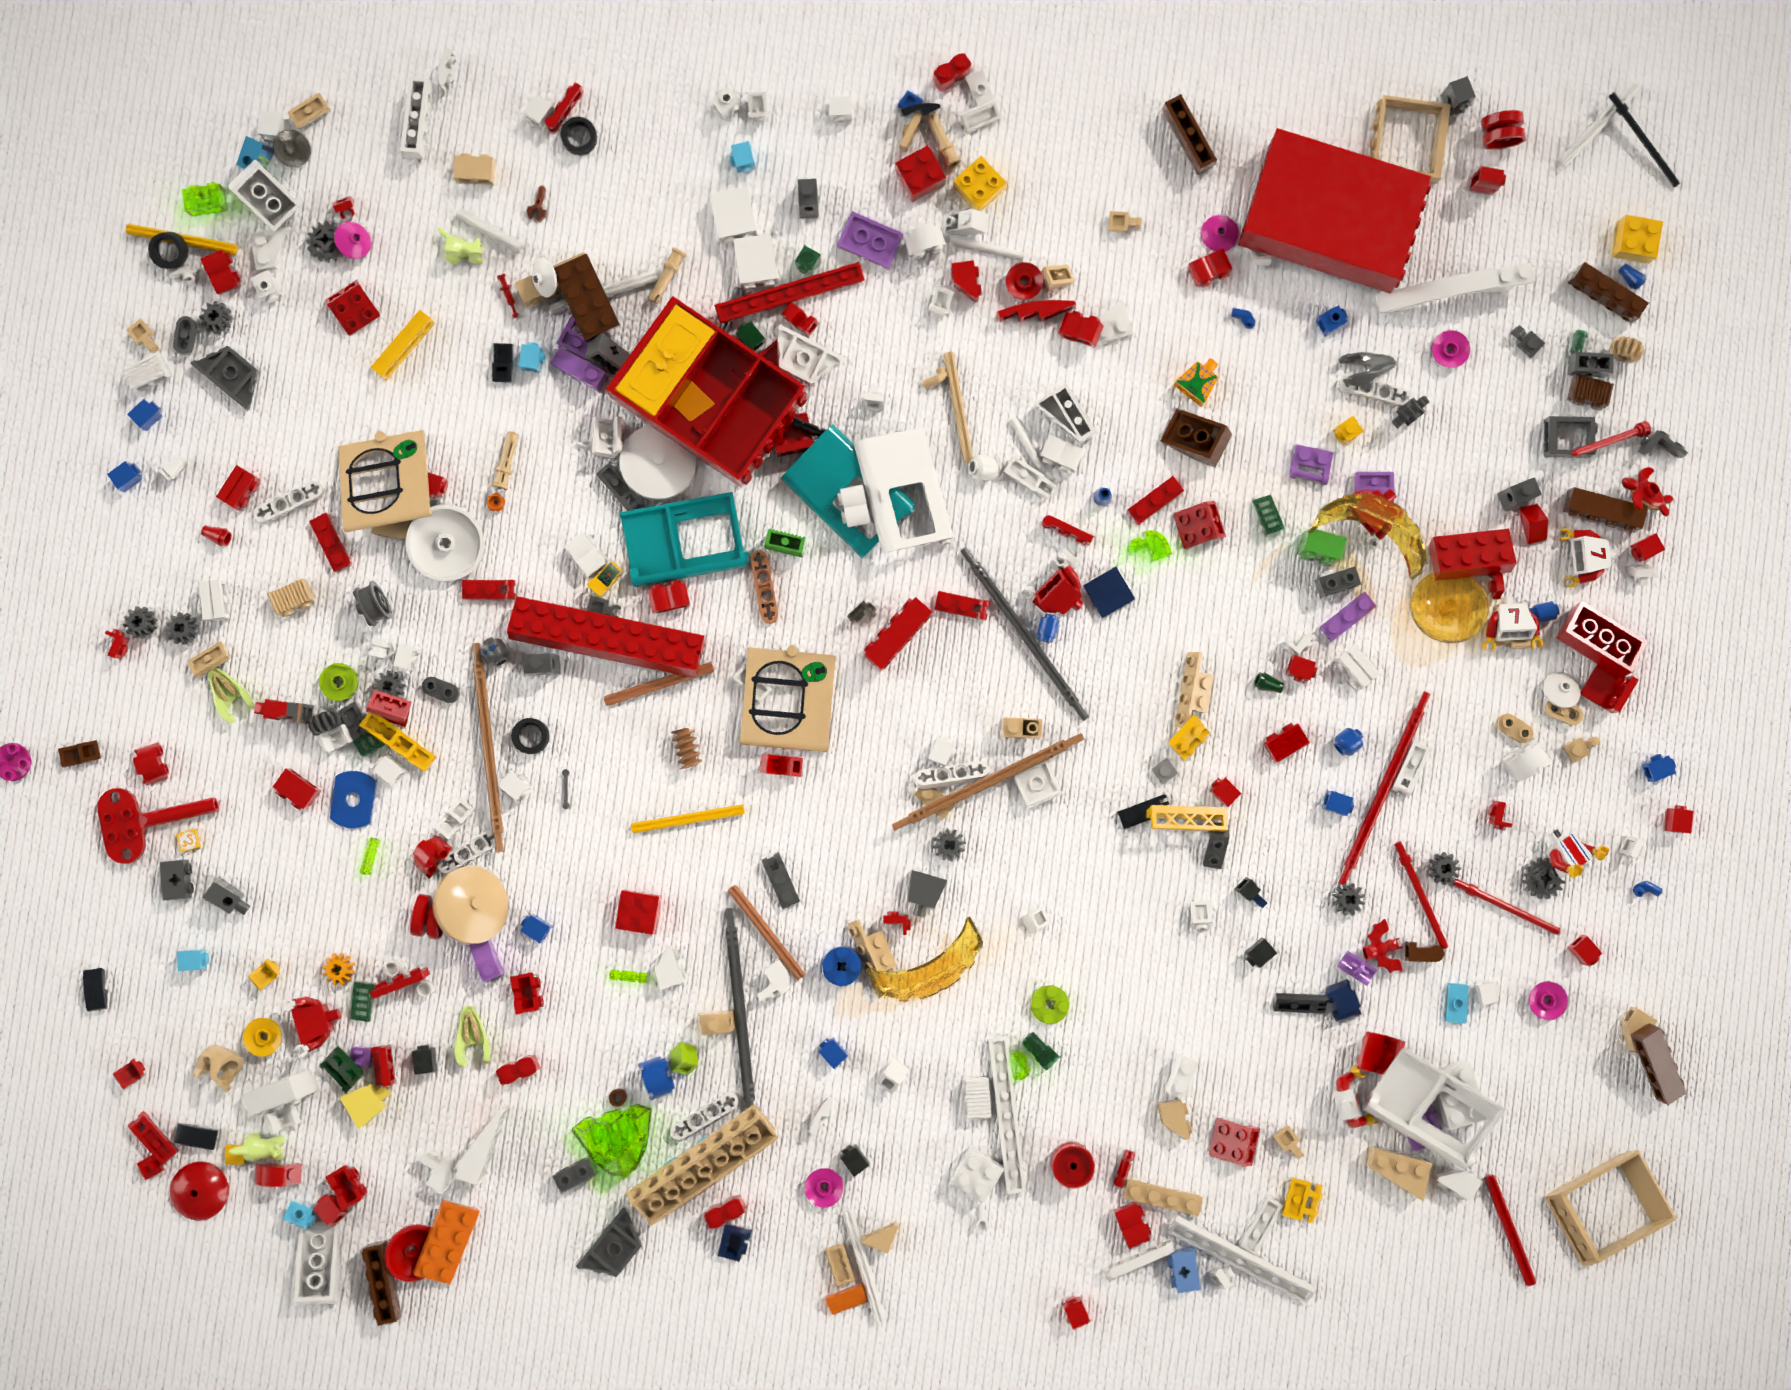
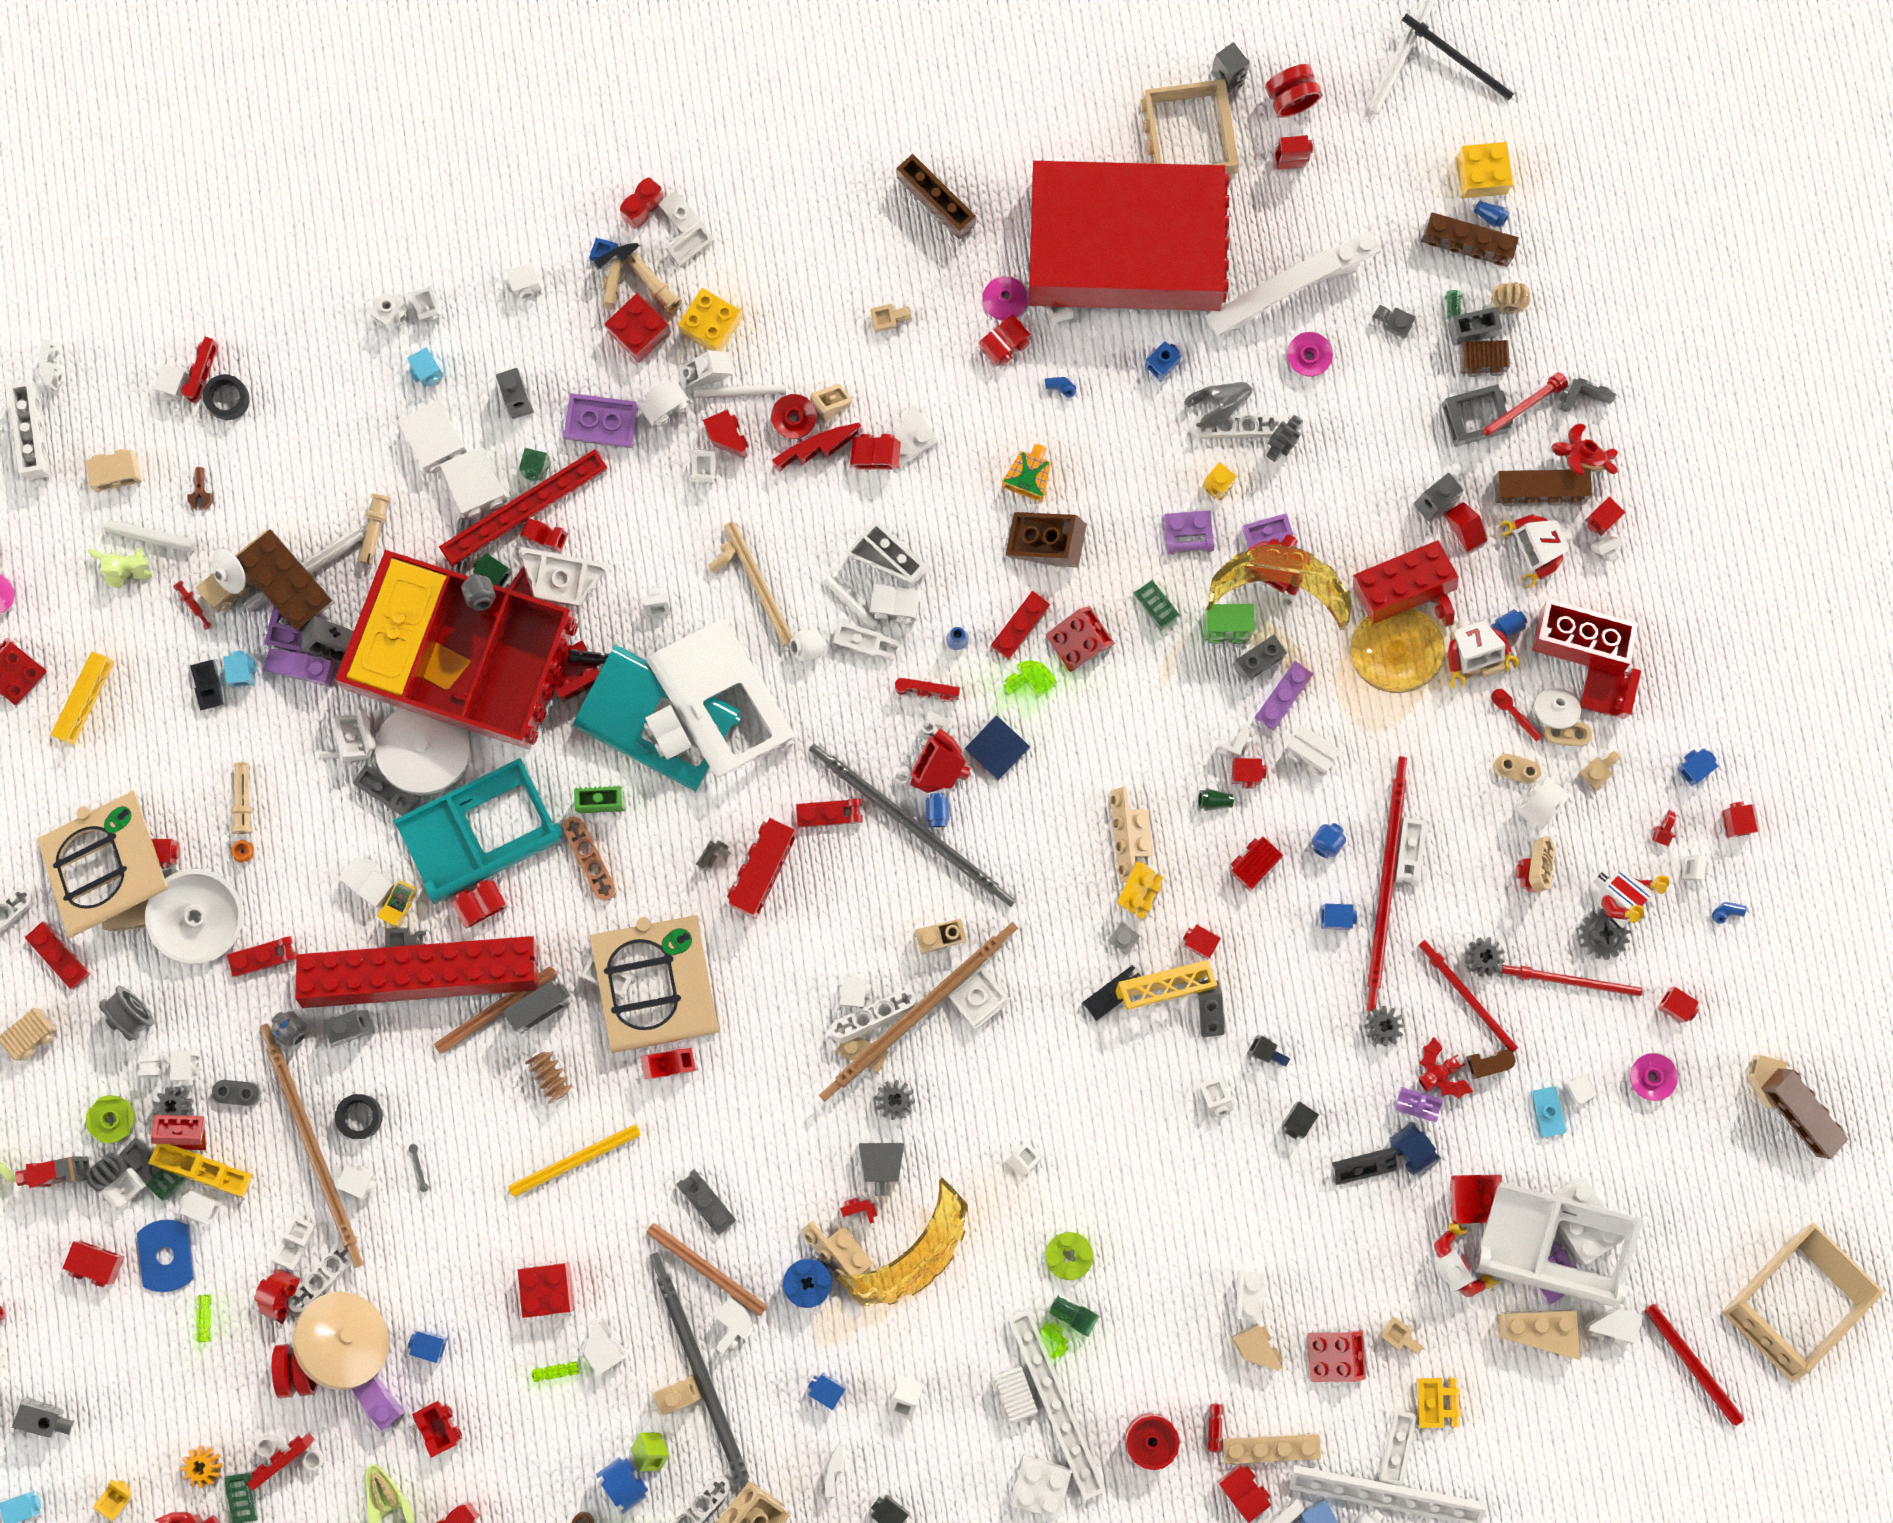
camera: 15 degrees left, 5 degrees down
(692, 691) = (537, 1006): none -> dark grey window
(737, 351) = (478, 592): none -> dark grey head
(1512, 809) = (1542, 864): none -> tan beam
(1521, 672) = (1505, 702): none -> red piece
(1615, 813) = (1663, 833): none -> red piece

